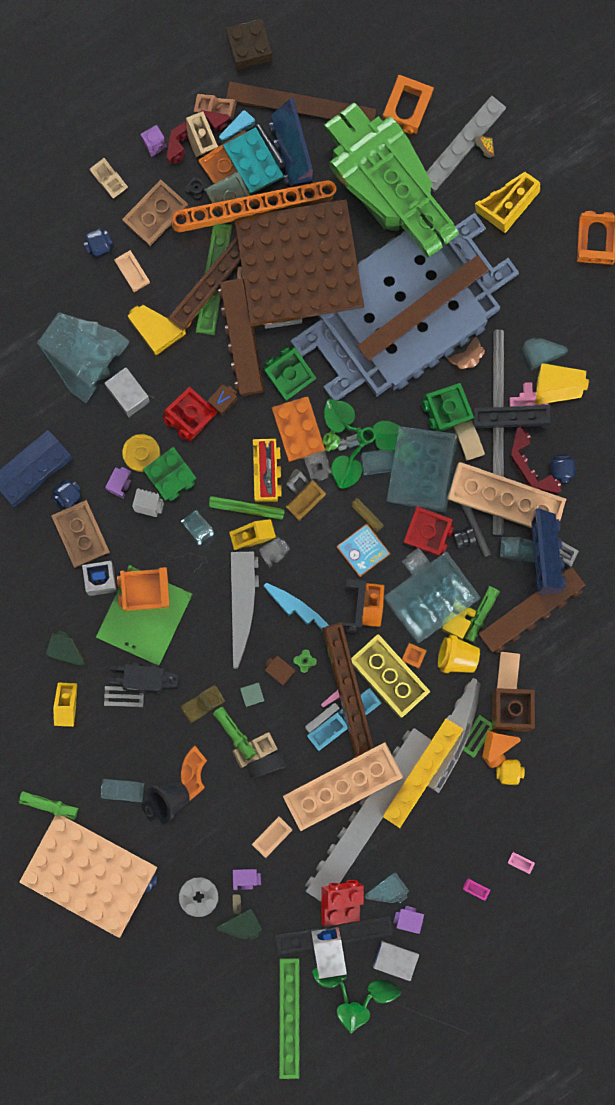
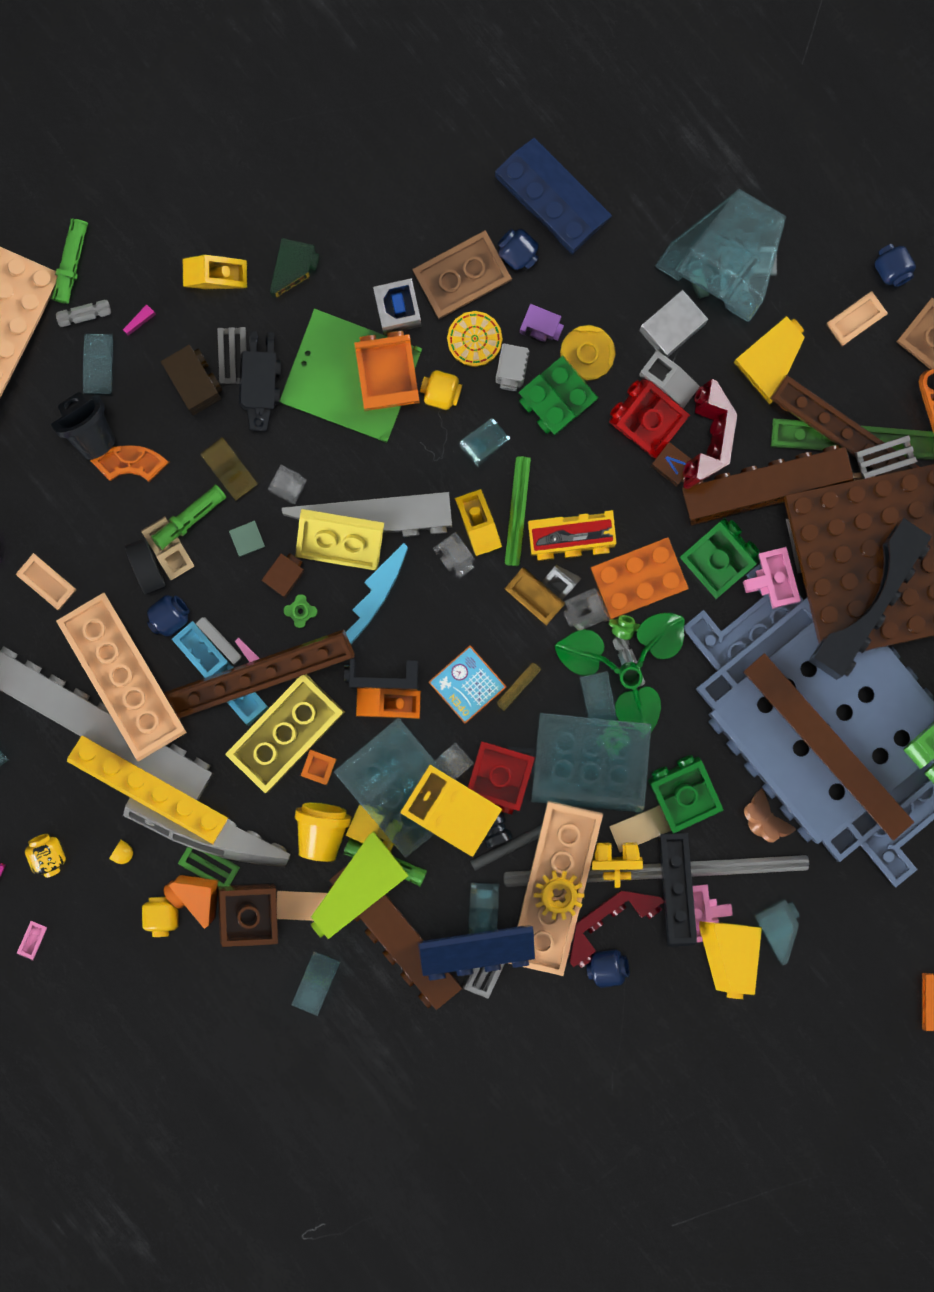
camera: 90 degrees right, 5 degrees up
(86, 799) = (83, 313): none -> light grey axle
(89, 753) = (141, 318): none -> dark pink piece
(125, 528) = (474, 339): none -> yellow tile
(139, 723) = (189, 377): none -> dark brown brick
(159, 553) = (441, 390): none -> yellow head
(163, 397) = (669, 378): none -> light grey slope
(183, 370) = (715, 406): none -> dark red slope
(217, 663) = (287, 484): none -> clear brick
(225, 242) = (908, 449): none -> light grey tile
(258, 629) = (339, 539): none -> light yellow tile
(296, 249) = (900, 552): none -> black arch
(302, 752) = (167, 615): none -> dark blue head
(306, 335) = (775, 578): none -> bright pink hinge
(450, 563) = (451, 810): none -> yellow slope
(463, 849) = (45, 855): none -> yellow head
(464, 795) = (122, 853): none -> yellow hinge
(491, 447) = (604, 861): none -> yellow hips
(497, 628) = (360, 885): none -> lime slope
(519, 498) = (557, 906): none -> yellow gear
(562, 667) = (315, 983): none -> clear light blue slope

